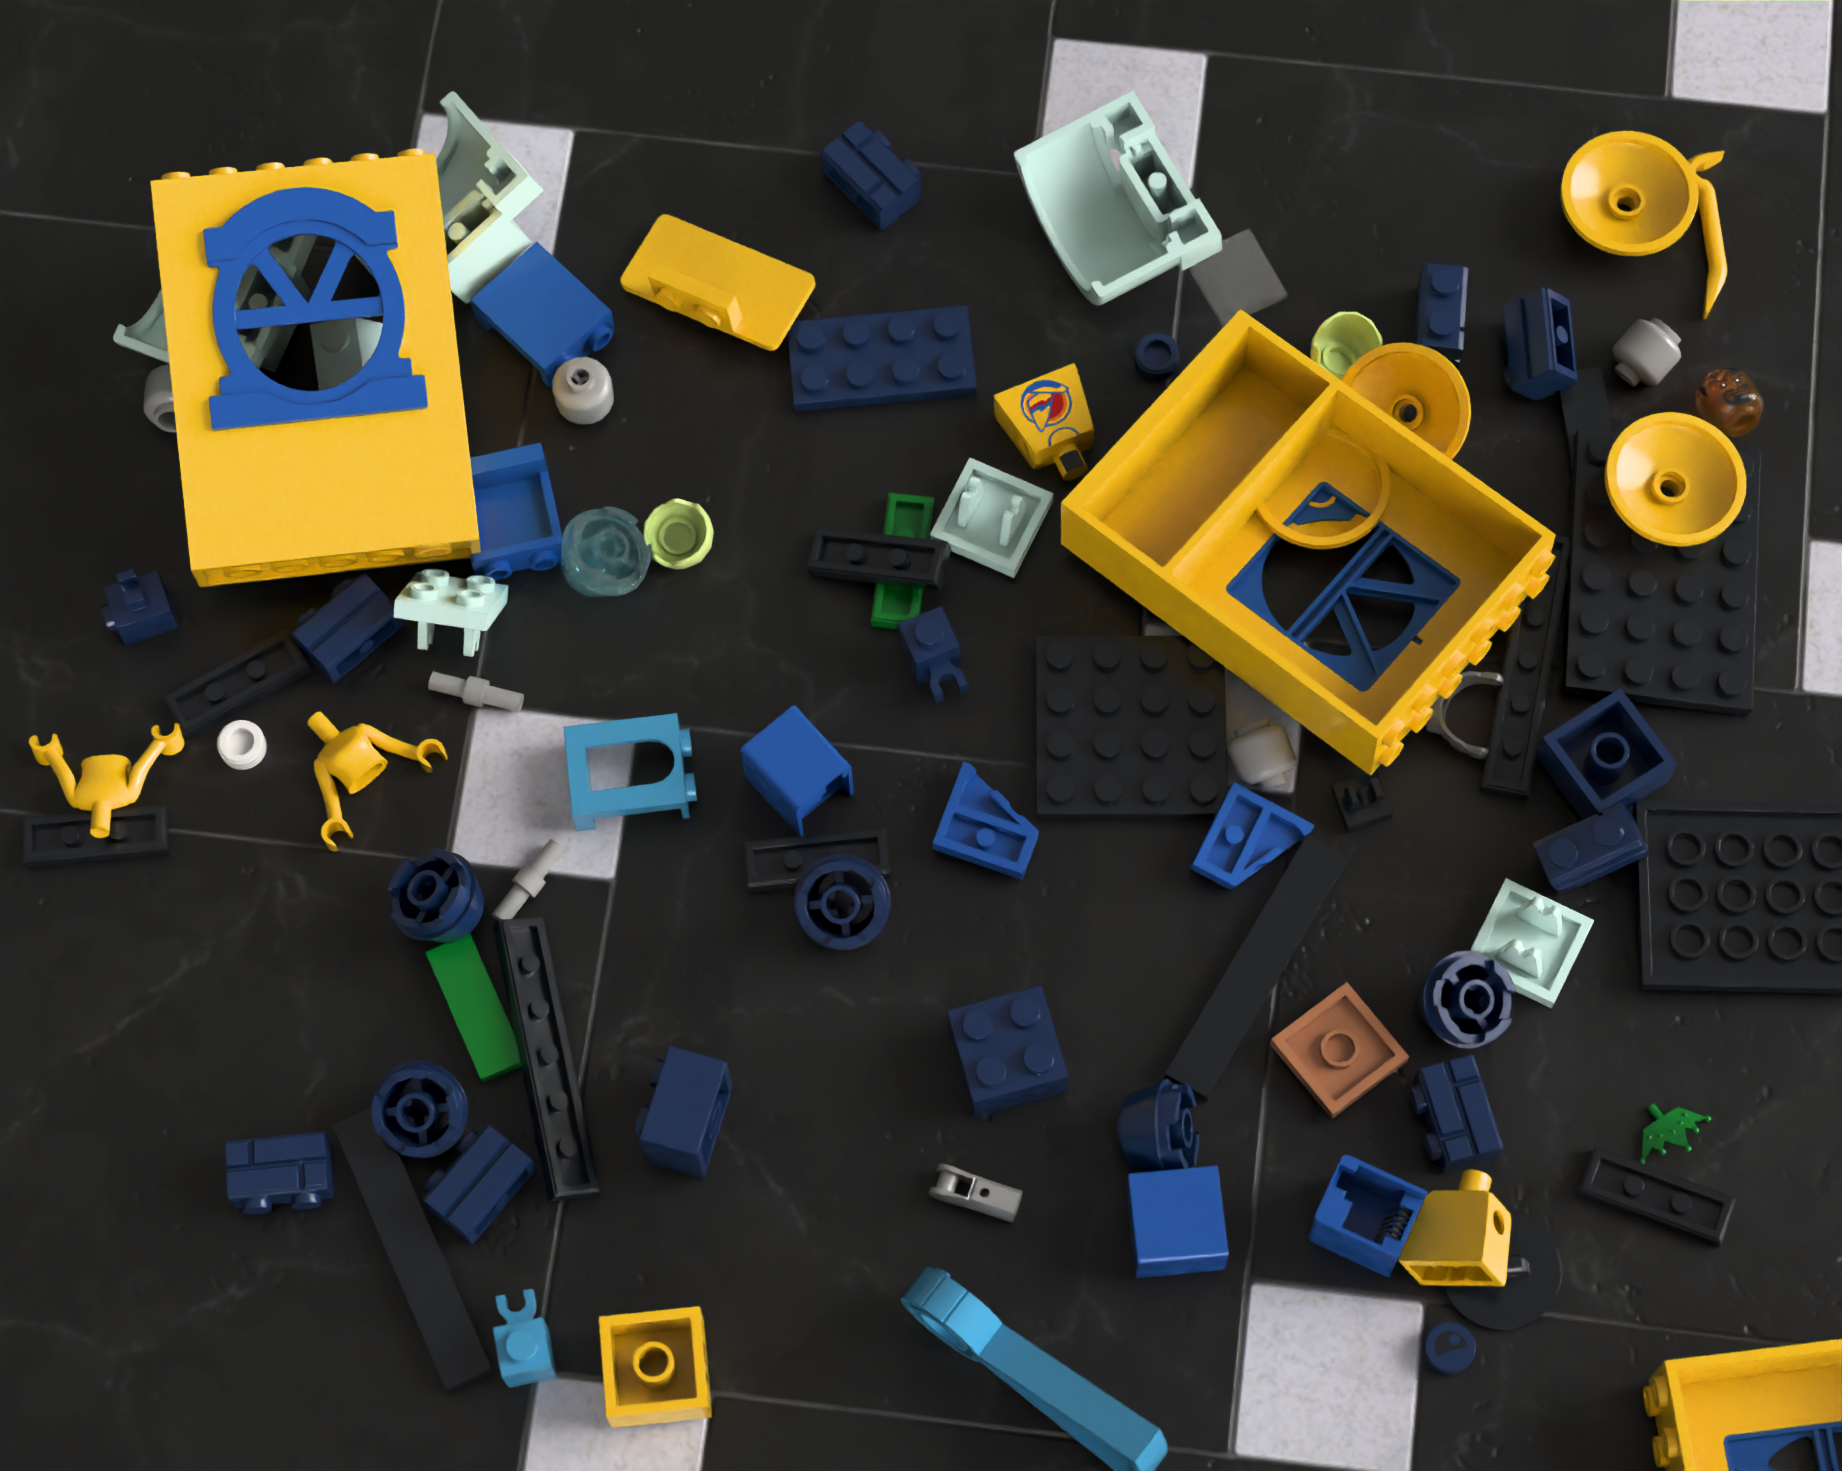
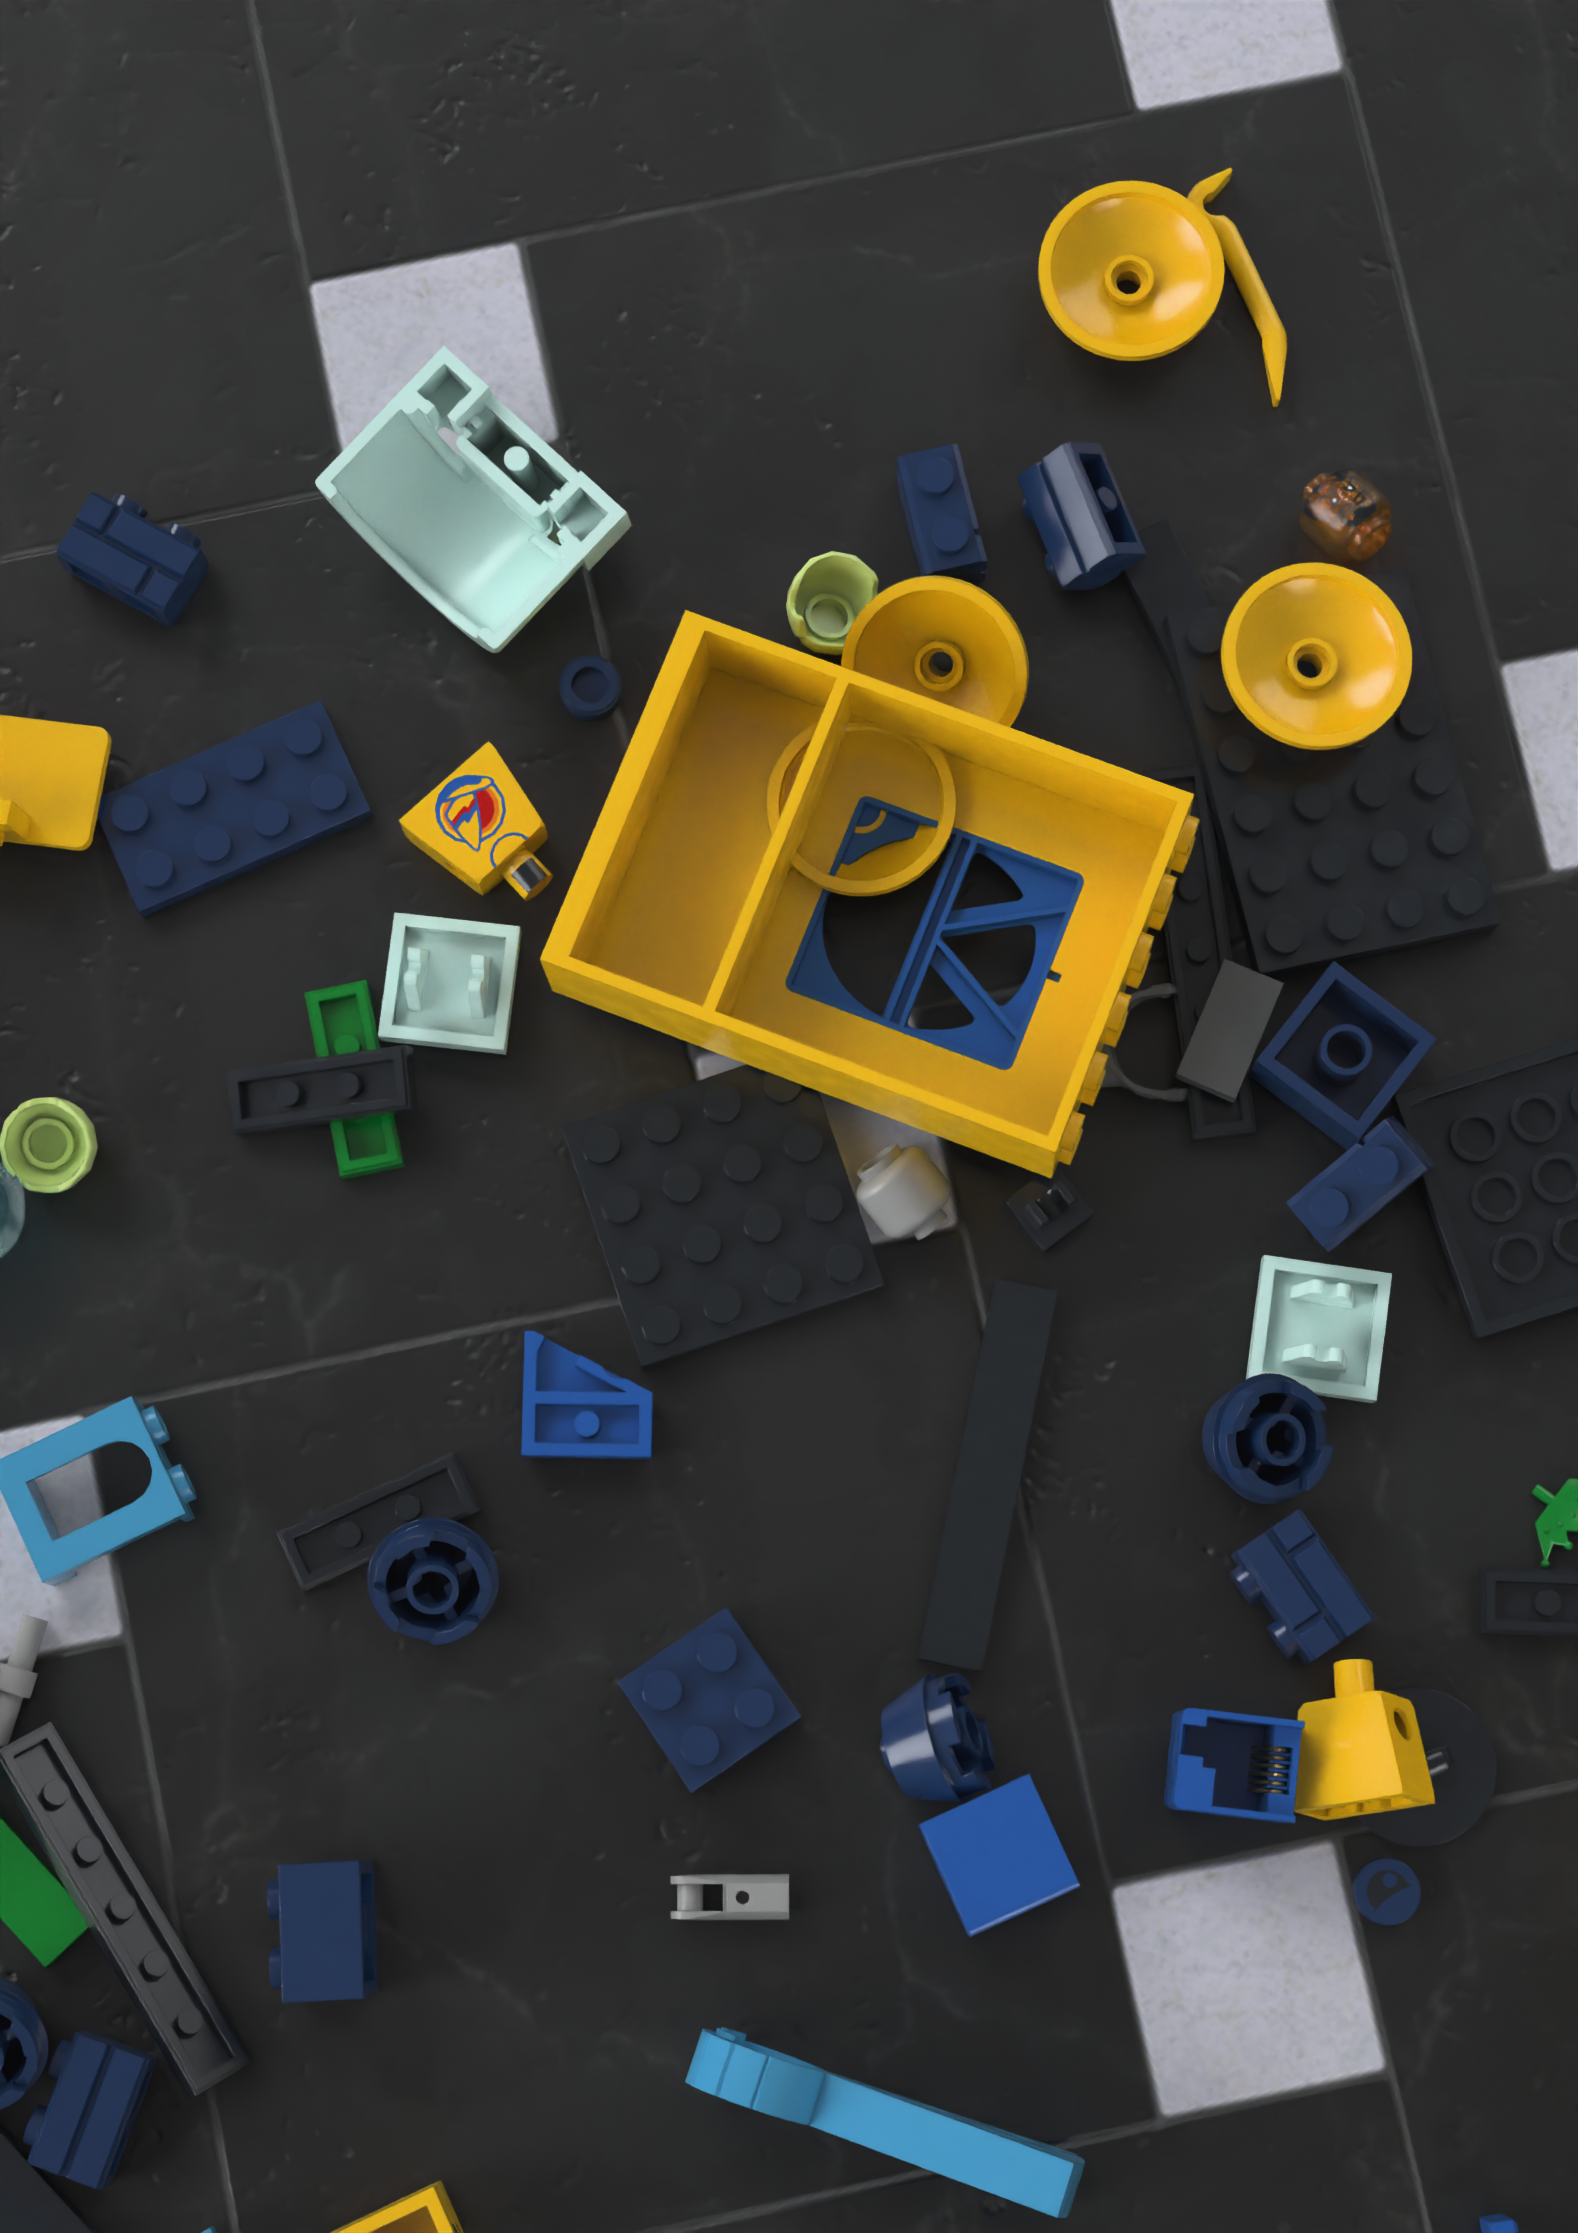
camera: 20 degrees left, 10 degrees up
(794, 767) = (310, 1417): blue piece -> none
(932, 651) = (435, 1195): dark blue brick -> none
(1238, 278) = (665, 547): clear piece -> none
(1245, 837) = (917, 1308): blue wing -> none
(1339, 1050) = (1127, 1552): nougat plate -> none
(1530, 717) = (1229, 1030): none -> dark grey tile
(1646, 352) = (1219, 481): light grey head -> none

